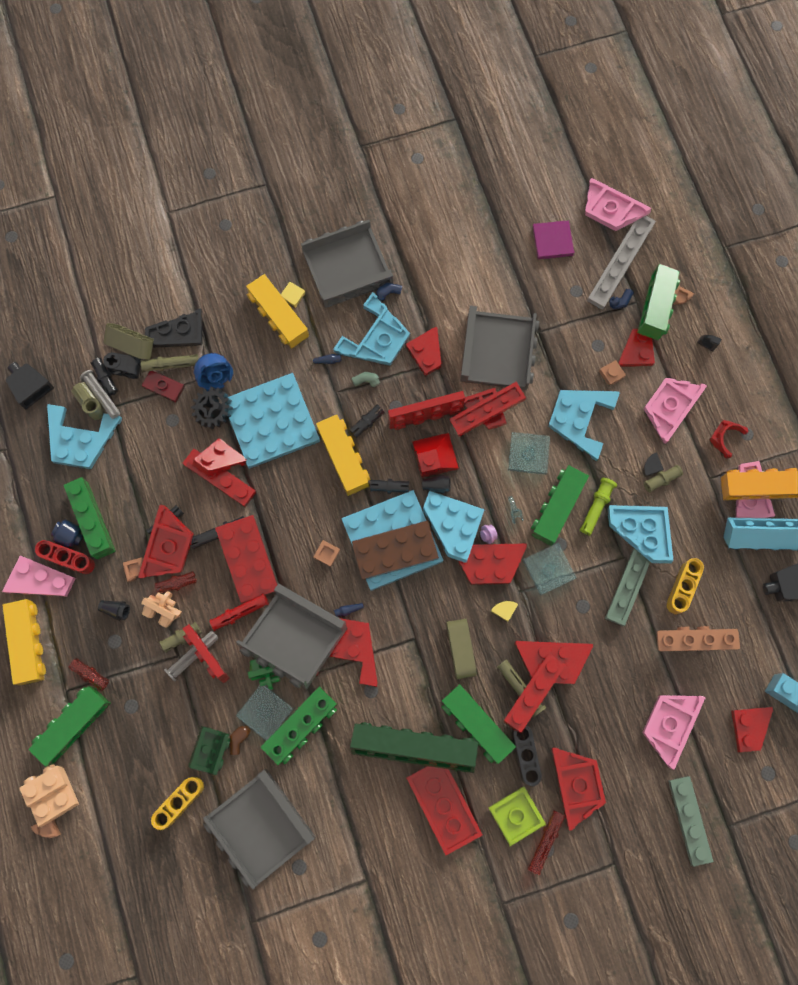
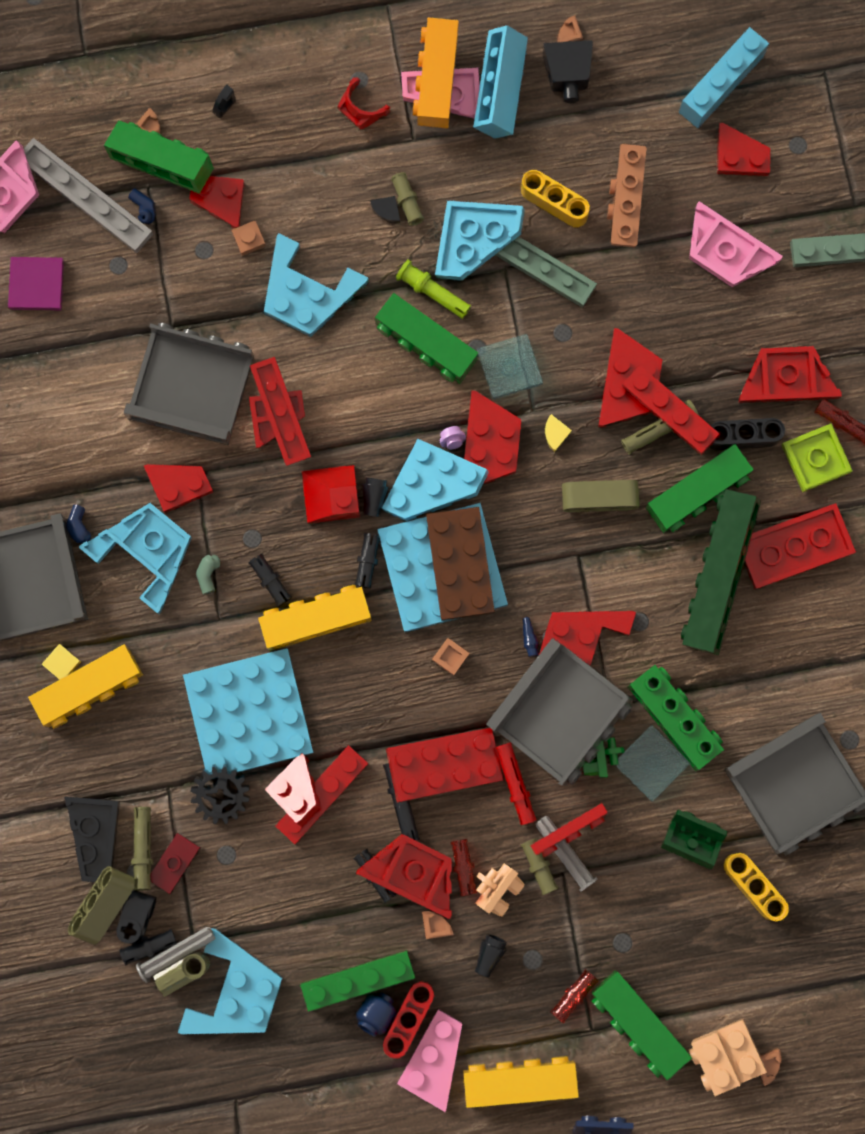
camera: 80 degrees left, 5 degrees up
(27, 384) = (142, 1061): black torso -> none
(212, 371) = (164, 789): blue cylinder -> none
(237, 737) = (680, 800): reddish brown arm -> none
(329, 359) = (169, 622): dark blue piece -> none
(425, 410) = (270, 486): red plate -> none
(515, 512) = (425, 398): clear light blue hand -> none
(529, 453) = (347, 367): clear light blue plate -> none
(671, 405) = (307, 169): bright pink wing -> none

